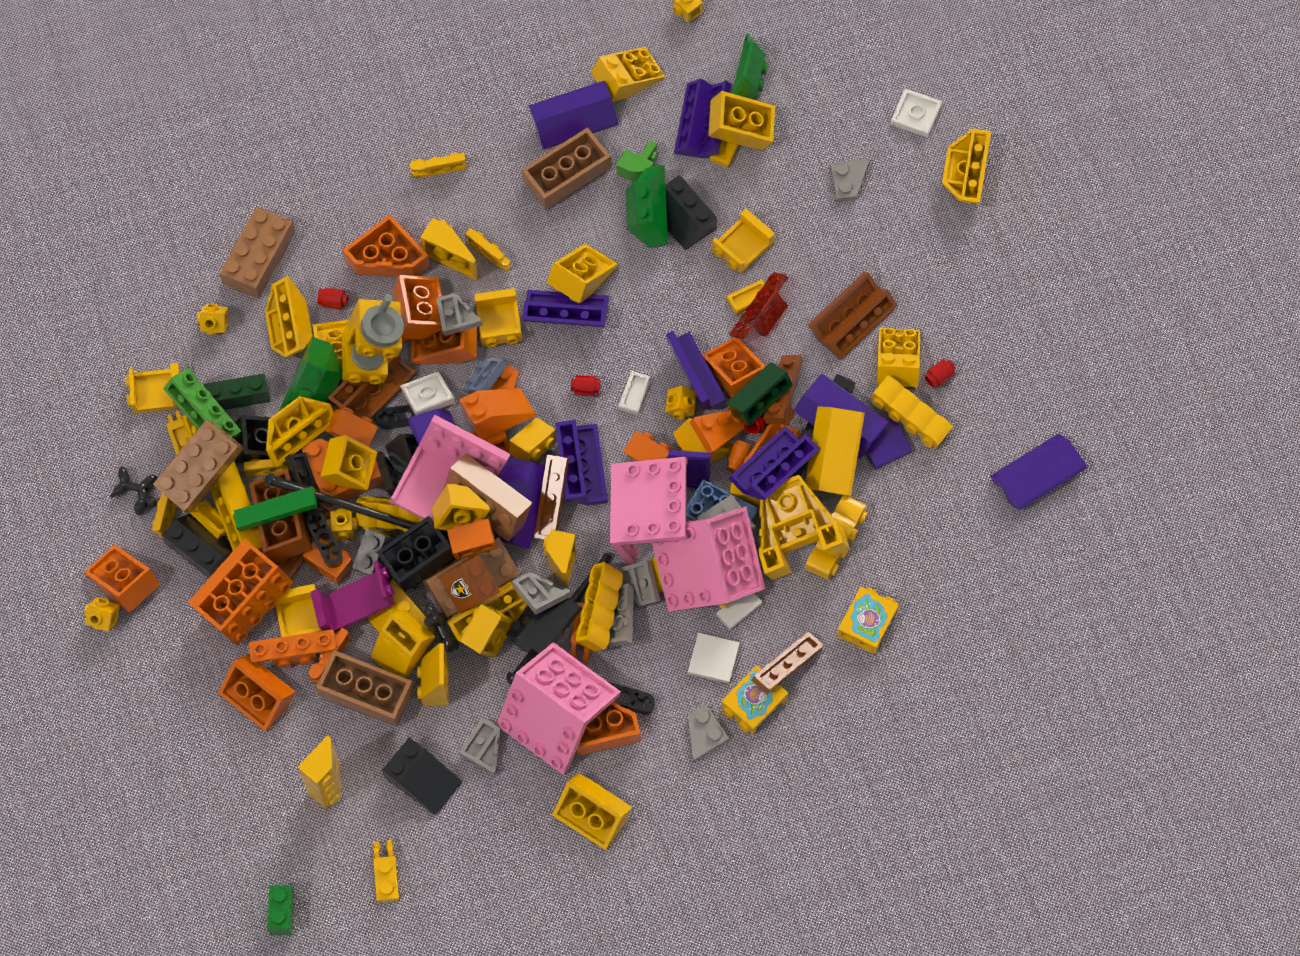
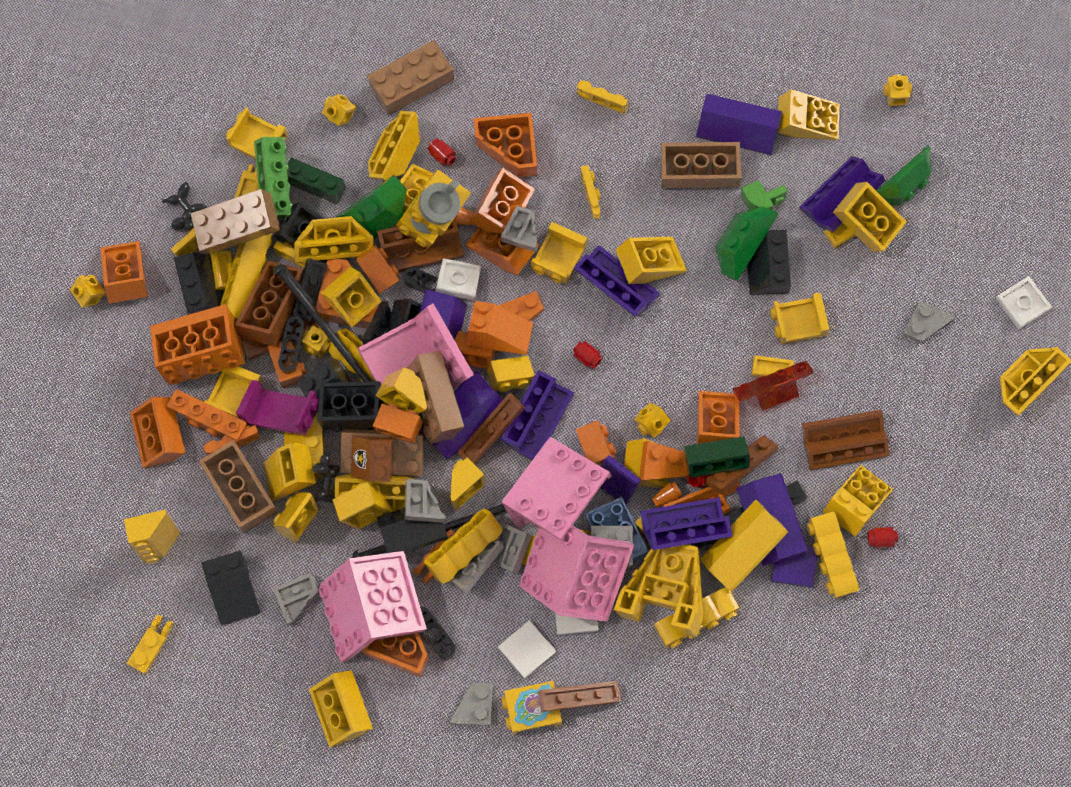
camera: 35 degrees right, 5 degrees up
(275, 508) = (268, 295): green tile -> none
(280, 910) = (49, 620): green brick -> none
(447, 248) = (555, 163): yellow slope -> none
(484, 375) = (512, 294): sand blue plate -> none
(634, 392) = (623, 386): white tile -> none
(696, 371) = (682, 402): dark purple slope -> none
(867, 619) = (672, 704): panel -> none
(1039, 471) = (904, 676): dark purple slope -> none

